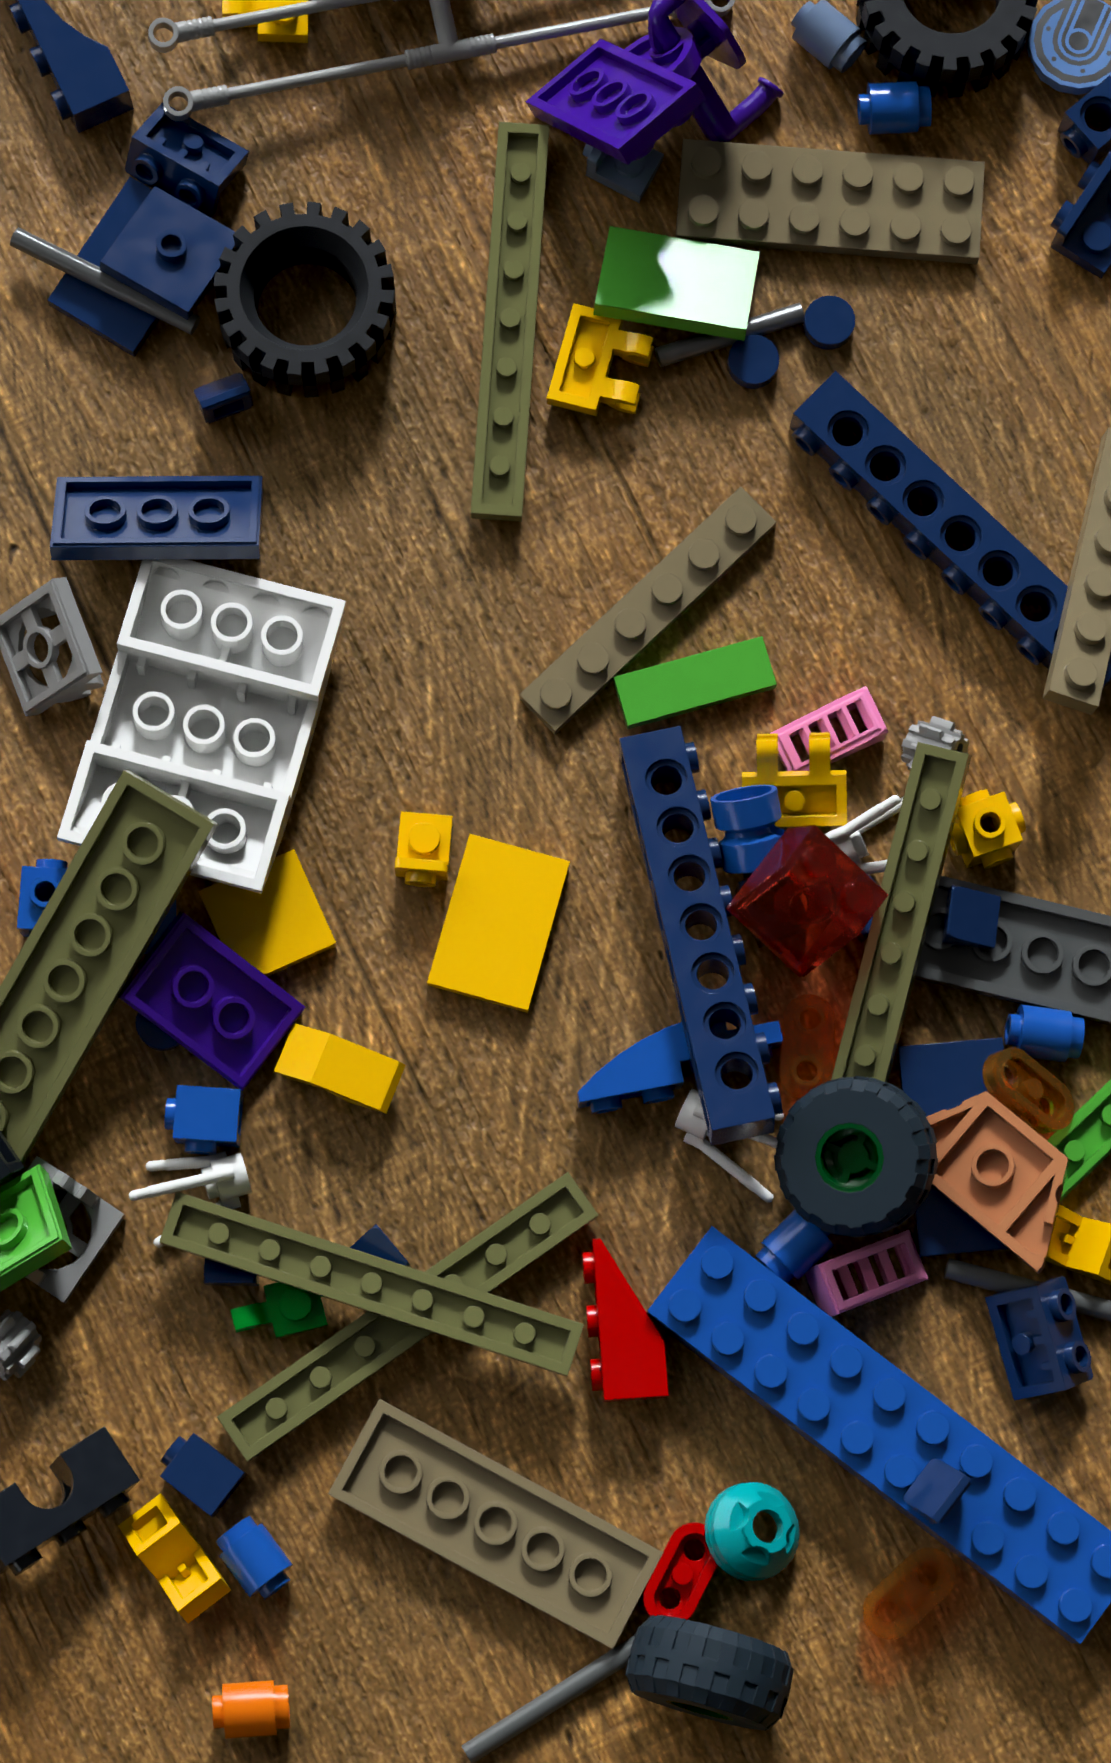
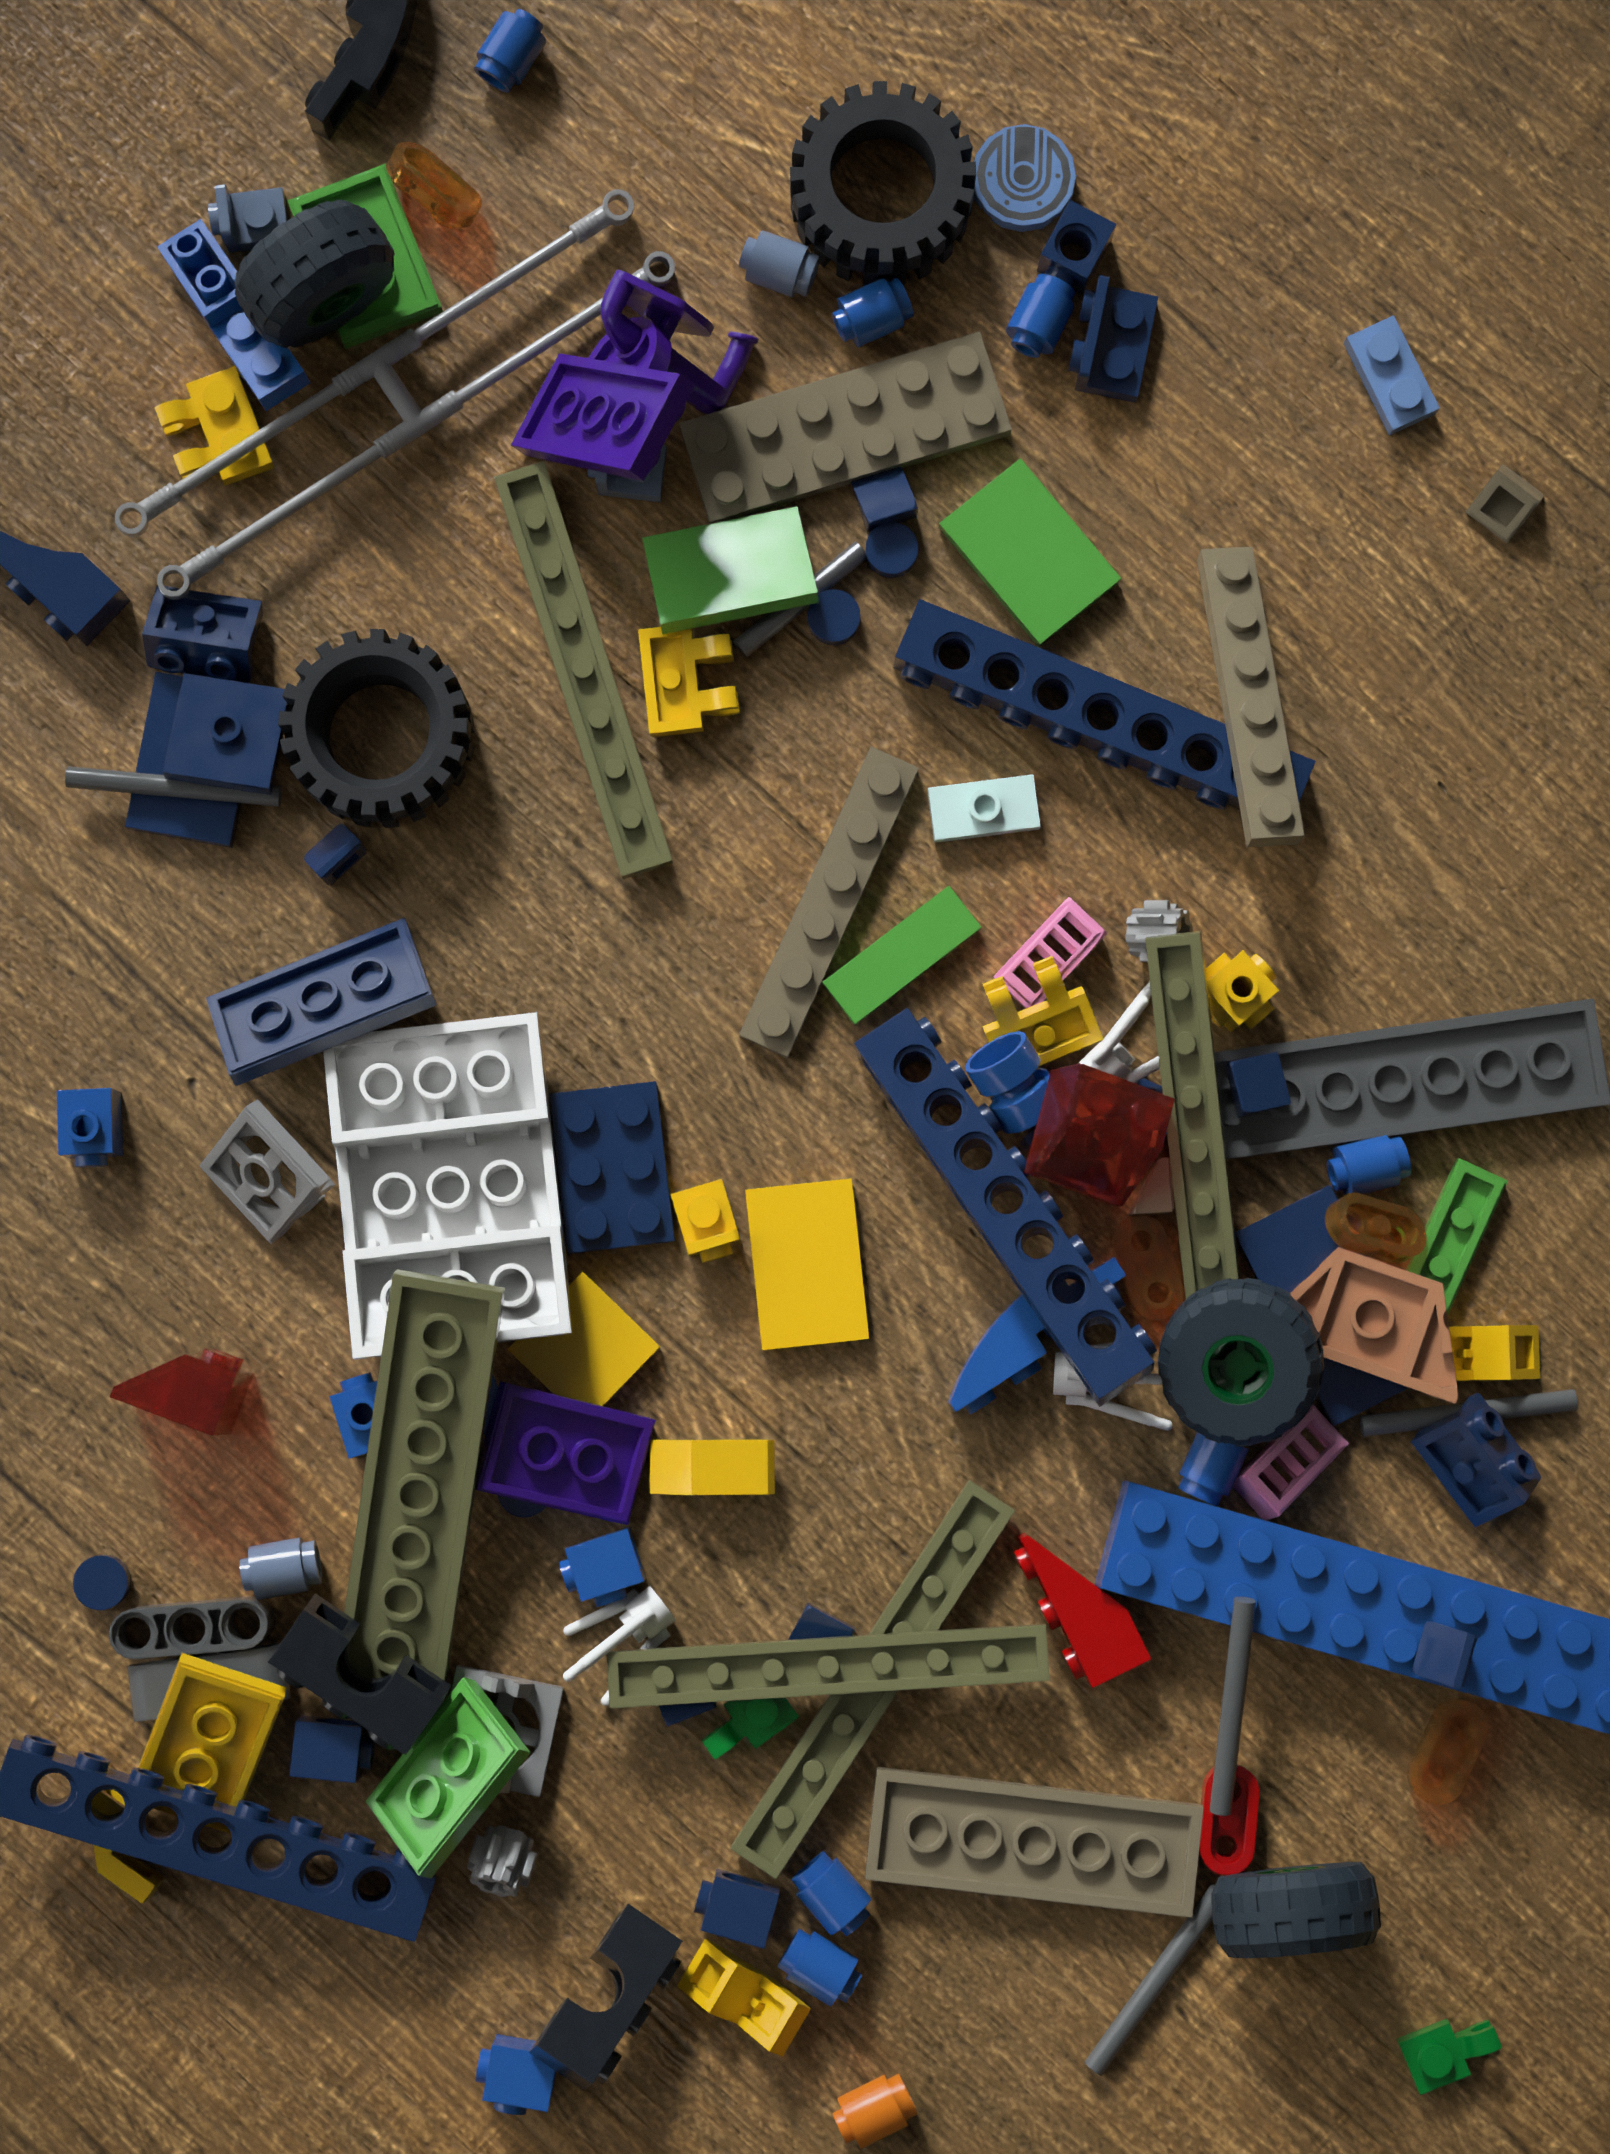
camera: 20 degrees left, 5 degrees up
(292, 1496) = (832, 1894): none -> blue brick
(358, 768) = (612, 1167): none -> dark blue plate
(725, 1465) = (1232, 1706): none -> dark grey bar
(732, 1537) = (1260, 1762): teal piece -> none
(821, 581) = (983, 808): none -> light aqua plate
(840, 981) = (1156, 1192): none -> dark tan slope
(841, 275) = (885, 498): none -> dark blue slope
(952, 372) = (1029, 552): none -> bright green tile
(1044, 168) = (1041, 316): none -> blue brick

